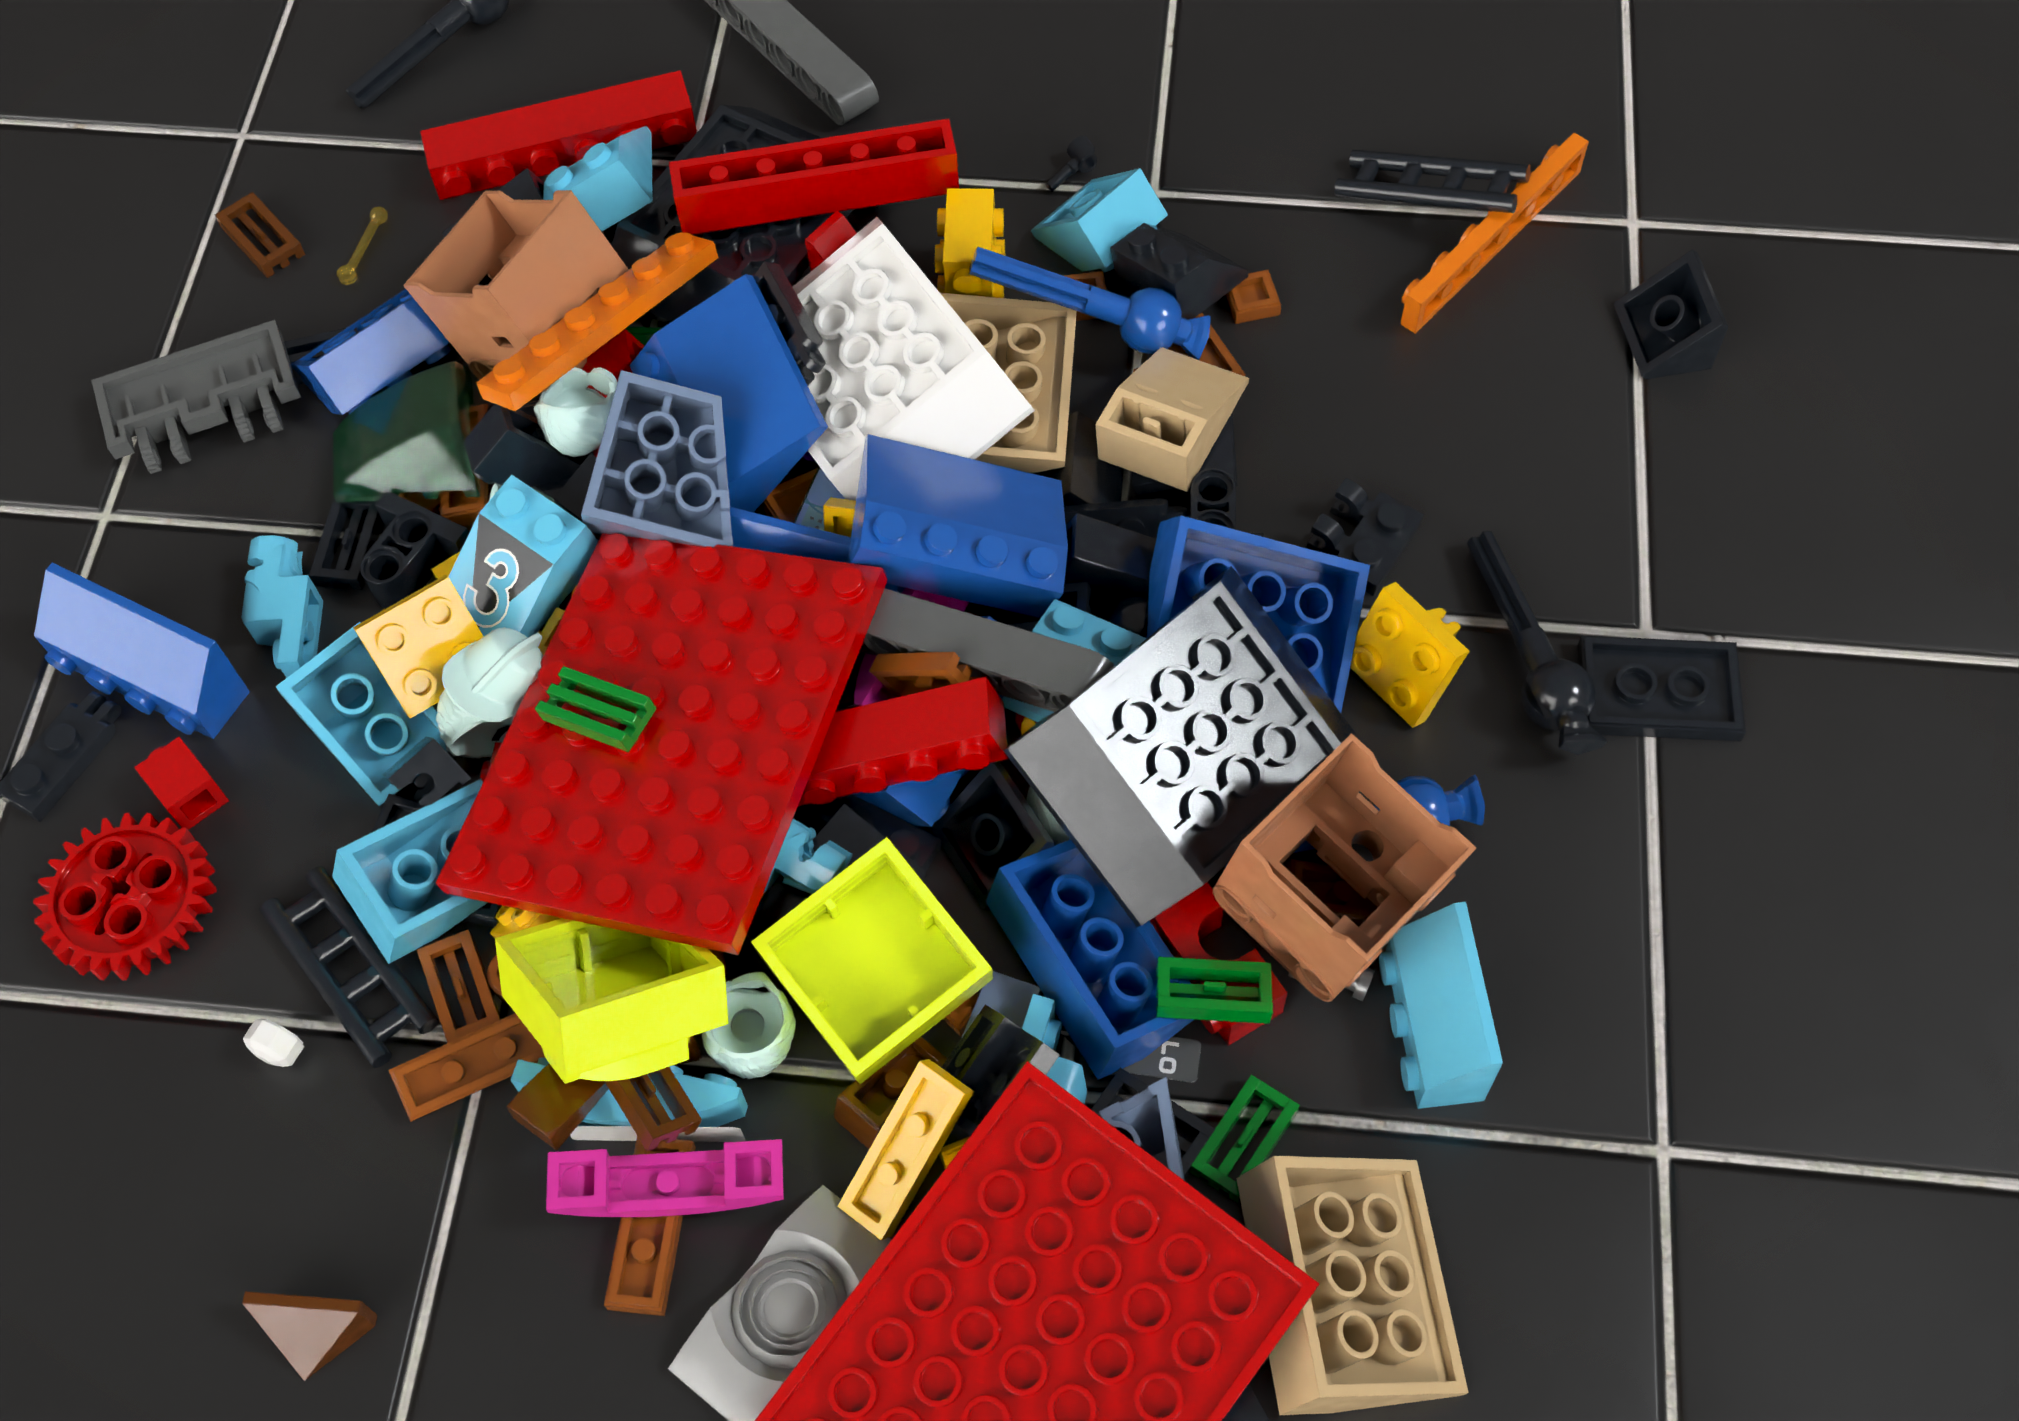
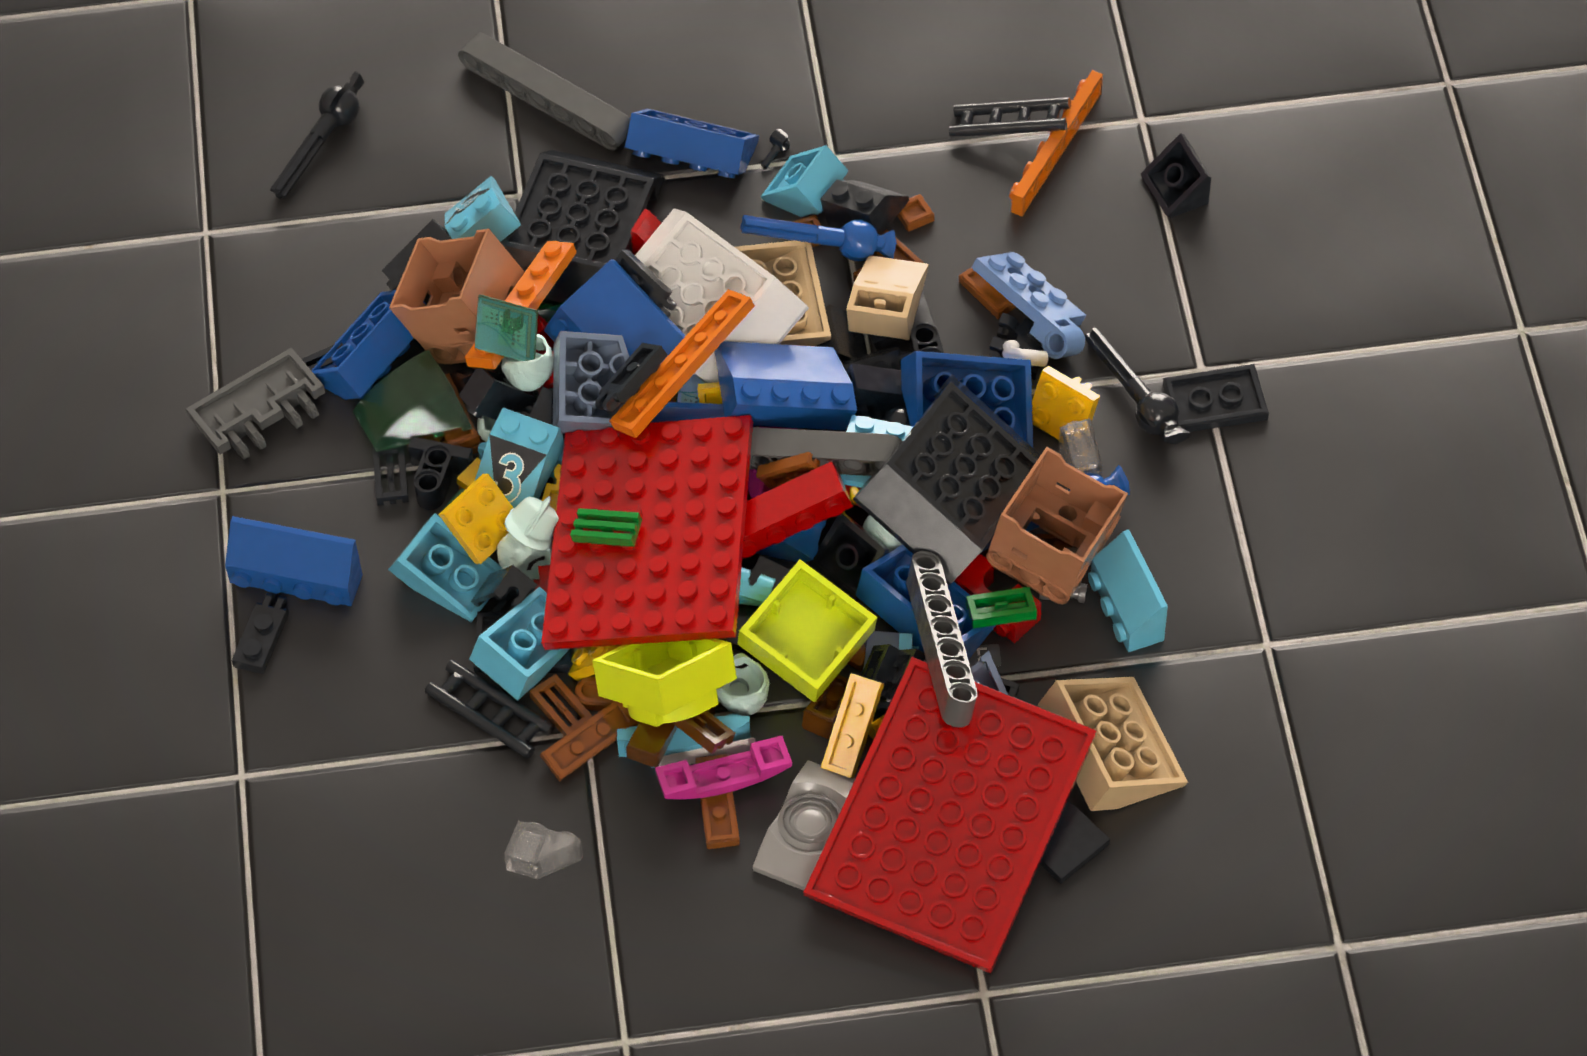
camera: 15 degrees left, 5 degrees down
(125, 896) = (313, 695): red gear -> none
(181, 783) = (349, 631): red brick -> none
(272, 1043) = (465, 755): white tile -> none
(276, 255) = (246, 299): reddish brown tile -> none
(281, 602) = (366, 517): medium azure plate -> none
(310, 1328) = (544, 888): slope -> none
(323, 1251) = (541, 851): none -> clear slope
(347, 273) = (318, 309): clear yellow hinge -> none
(550, 351) = (506, 328): none -> clear green piece
(554, 133) = (428, 192): red brick -> none
(707, 468) = (630, 376): none -> black hinge
(799, 461) = (682, 363): none -> orange plate
(814, 176) = (625, 190): red brick -> none
(966, 224) = (728, 205): yellow brick -> none
(986, 145) = (690, 141): none -> blue slope
(1085, 1051) = (941, 639): none -> dark grey beam
(1219, 1177) = (1046, 663): green tile -> none
(1337, 436) = (985, 293): none -> dark orange tile
(1346, 545) = (1013, 351): none -> white arm
(1409, 471) = (1050, 310): none -> medium blue hinge
(1414, 734) = (1080, 447): none -> clear slope

